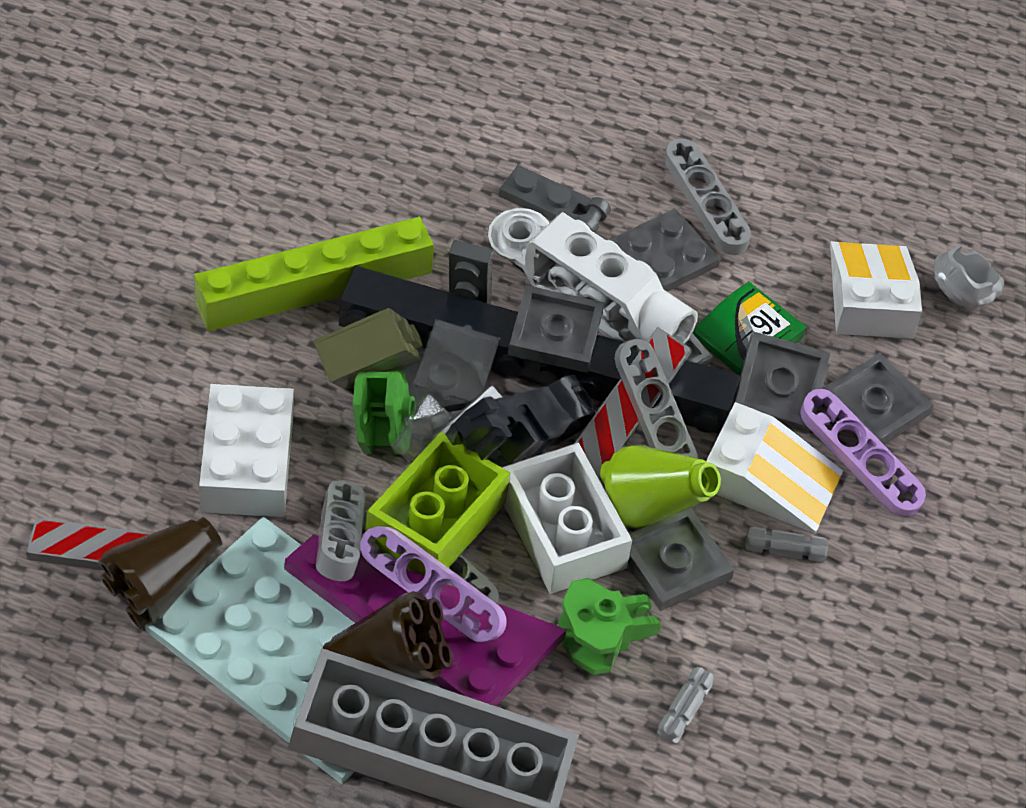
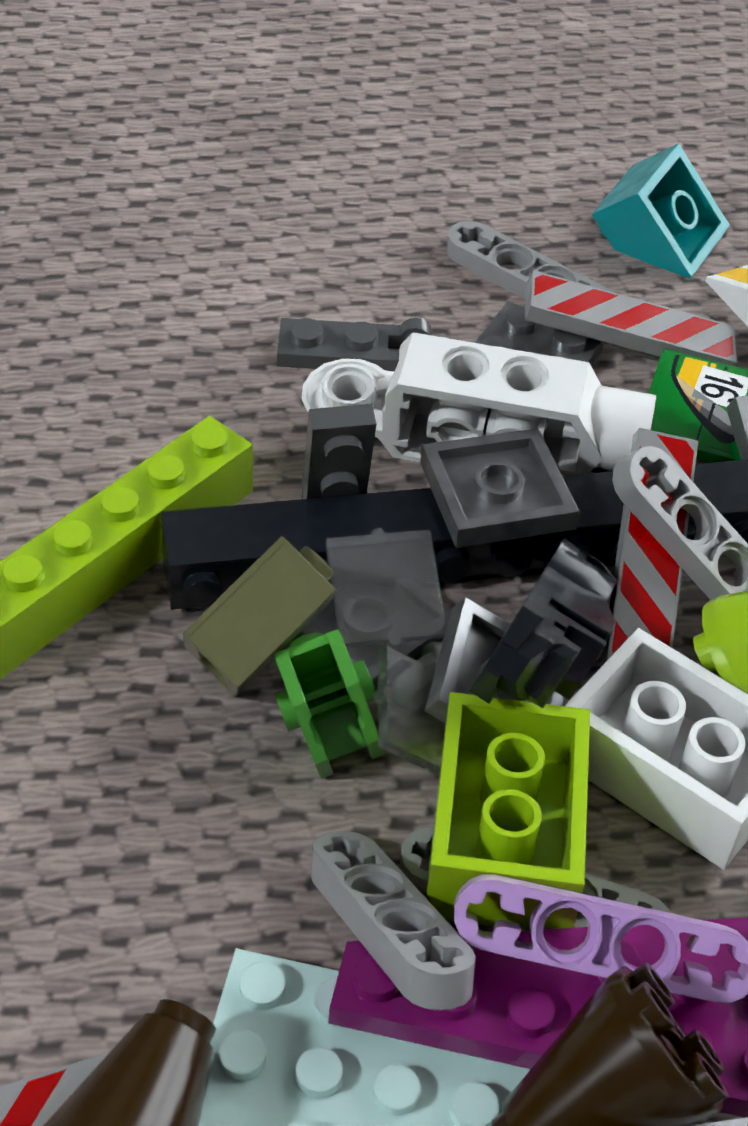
camera: 25 degrees left, 5 degrees down
(246, 450) = (154, 854): white brick -> none
(740, 254) = (625, 320): none -> light grey tile
(829, 186) = (662, 214): none -> teal slope

